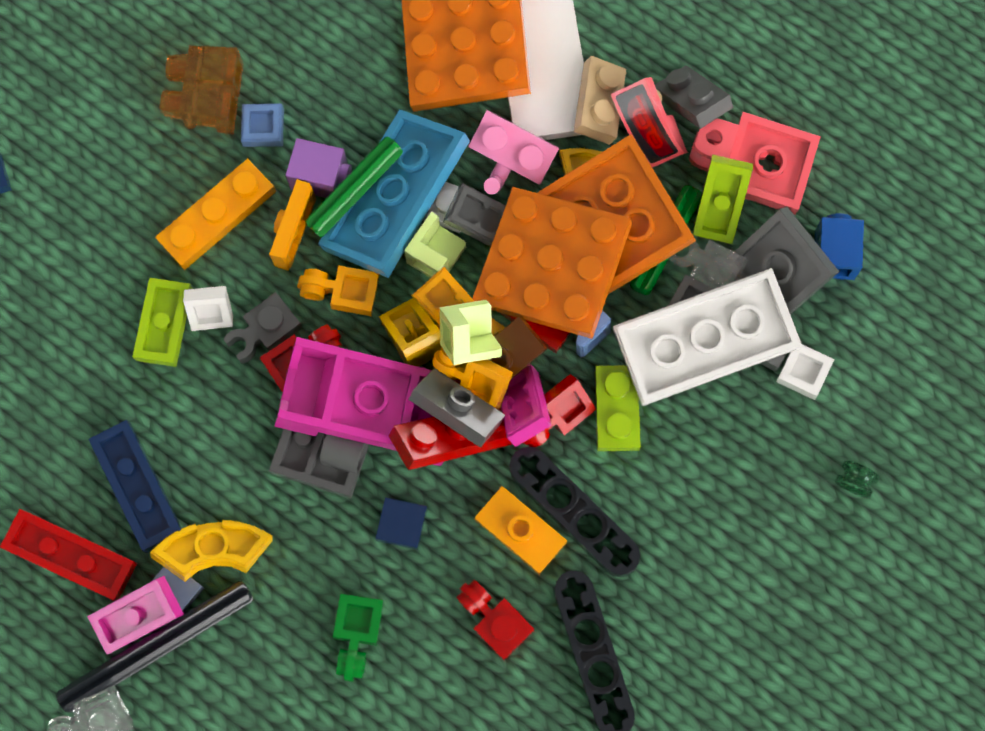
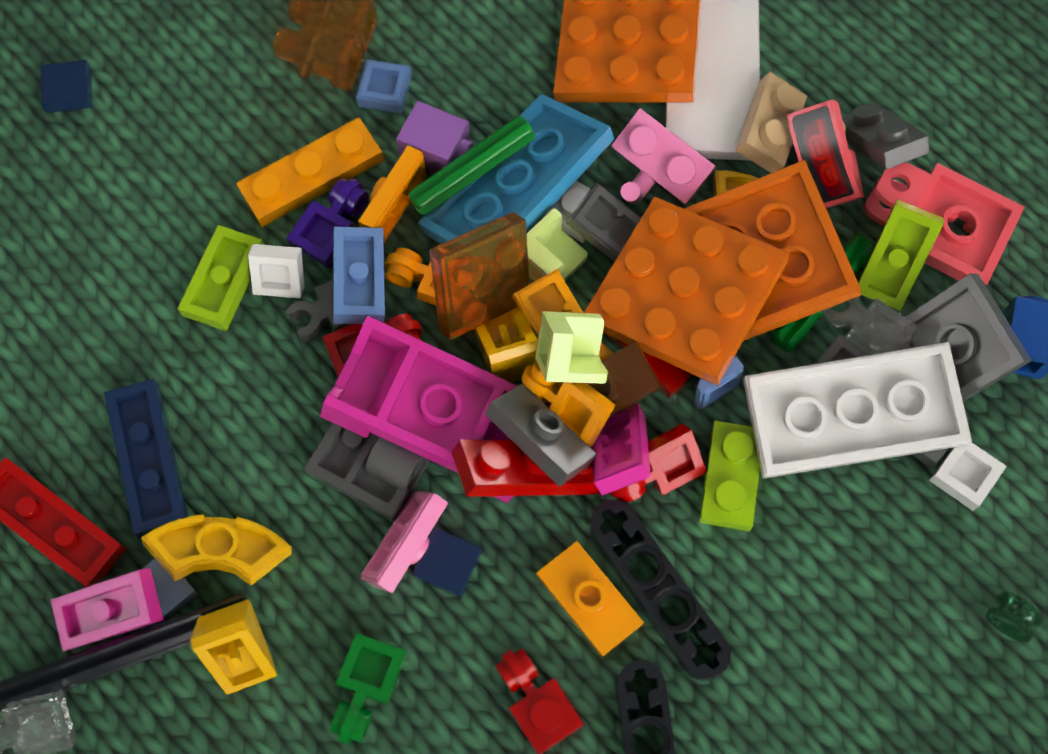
camera: 10 degrees right, 5 degrees down
(241, 266) = (316, 226): none -> dark purple plate
(245, 624) = (233, 647): none -> yellow slope
(279, 300) = (358, 275): none -> medium blue plate
(363, 513) = (404, 541): none -> bright pink plate
(381, 282) = (479, 274): none -> clear orange plate

